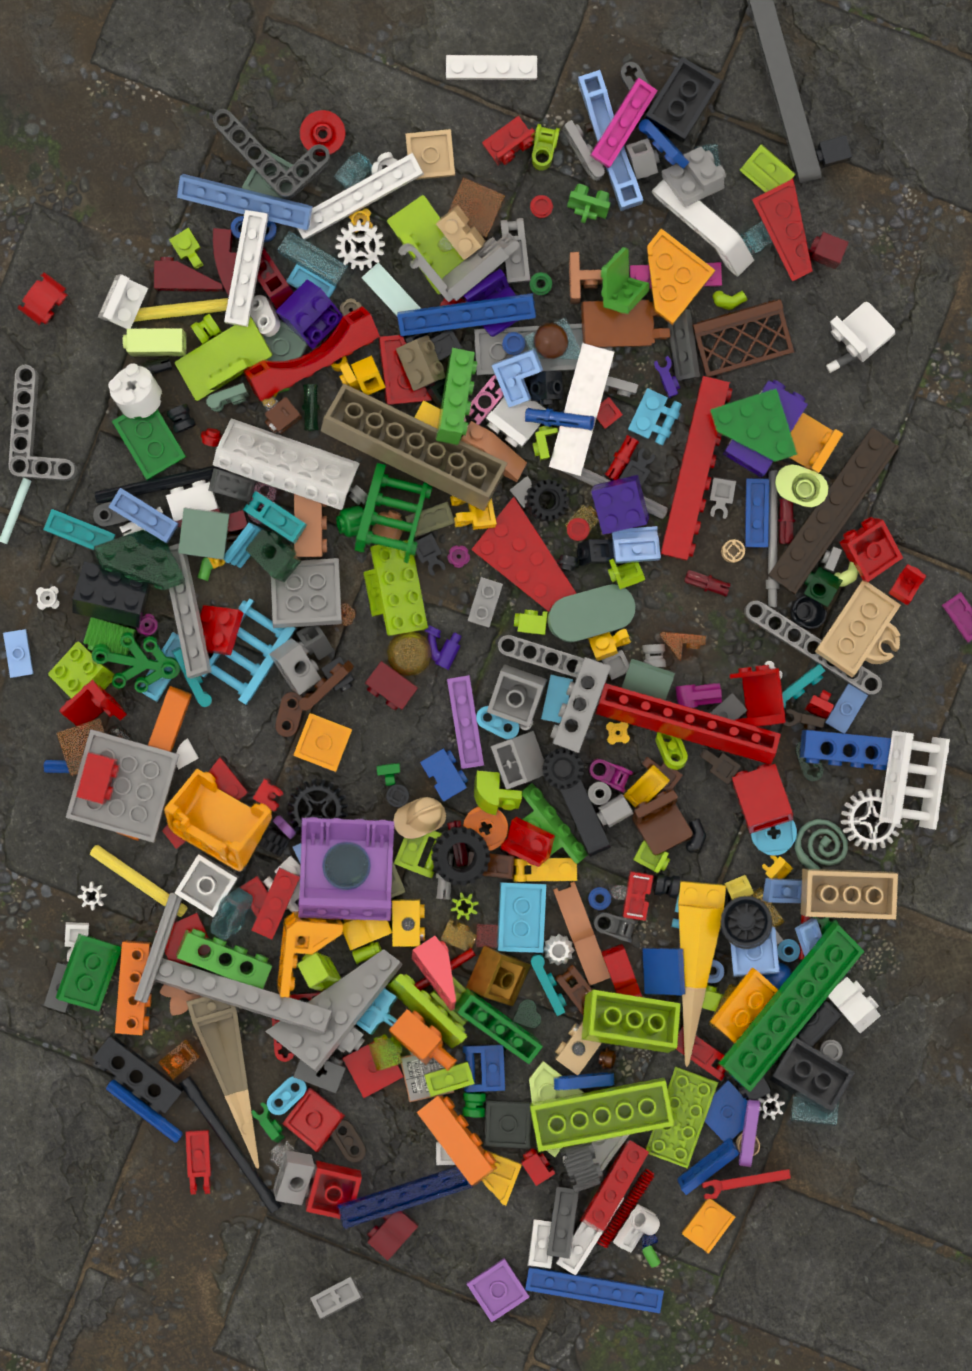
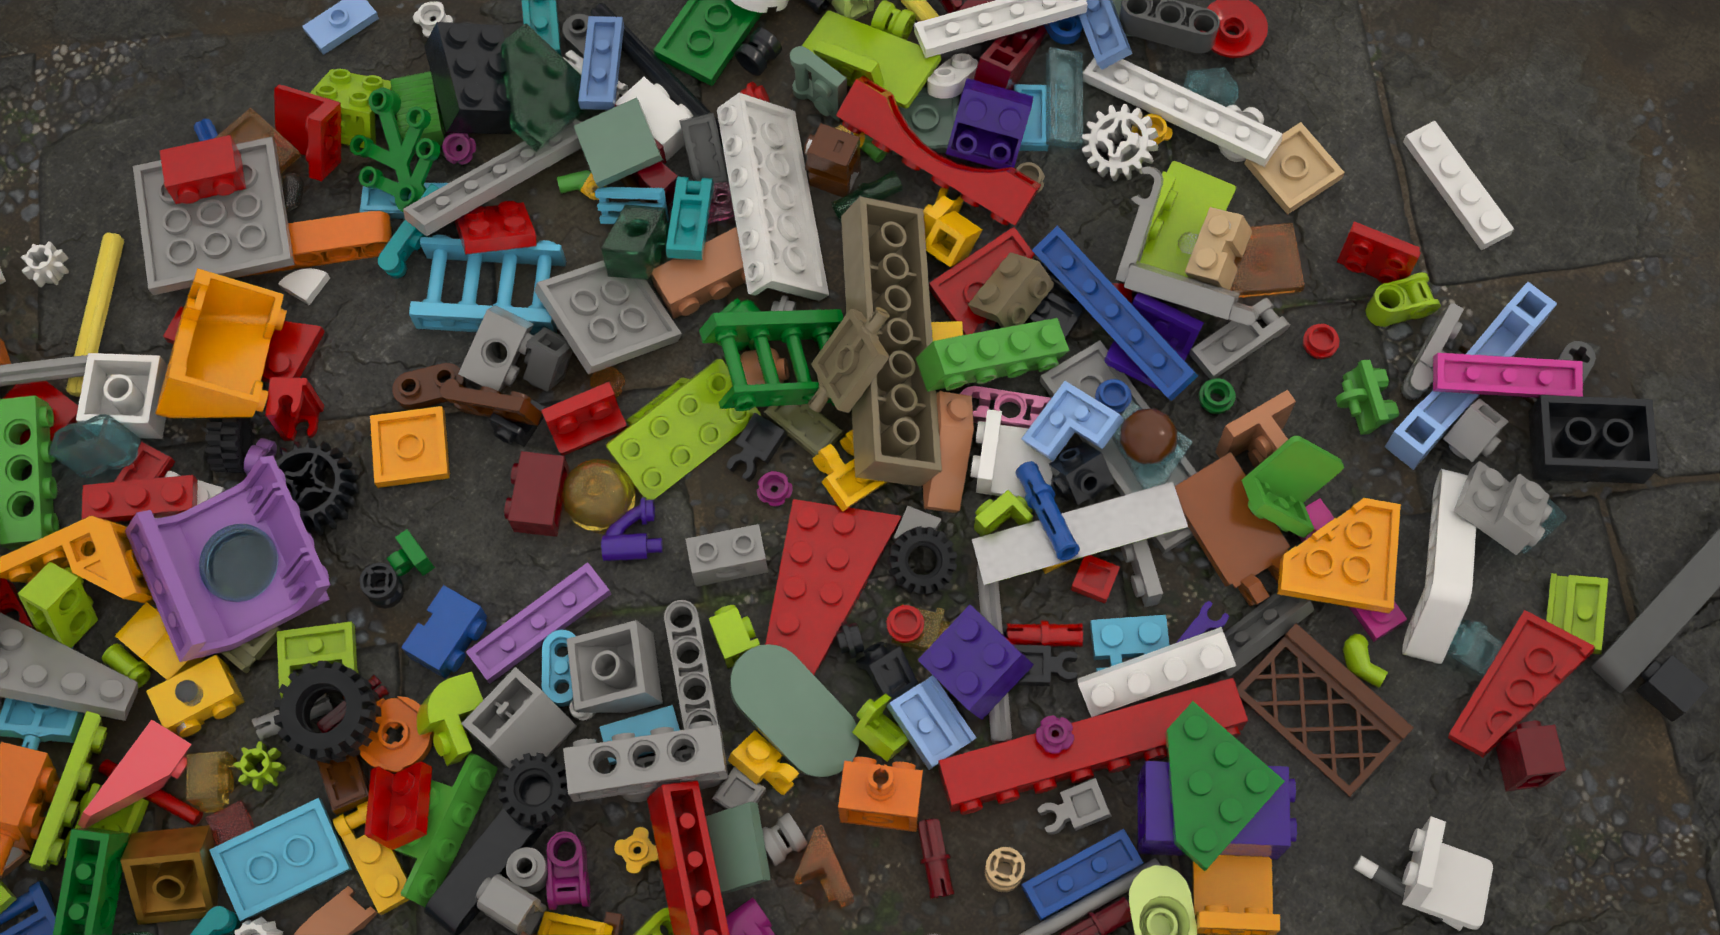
camera: 65 degrees right, 20 degrees down
(363, 638) = (584, 419): none -> red bracket
(389, 290) = (1085, 208): light aqua tile -> none
(419, 817) = (363, 633): tan piece -> none
(422, 479) = (849, 360): none -> dark tan plate
(662, 143) = (1517, 441): blue plate -> none
(662, 593) = (880, 794): none -> orange brick
(676, 486) = (1055, 744): none -> magenta plate
(677, 413) = (1156, 672): none -> white plate

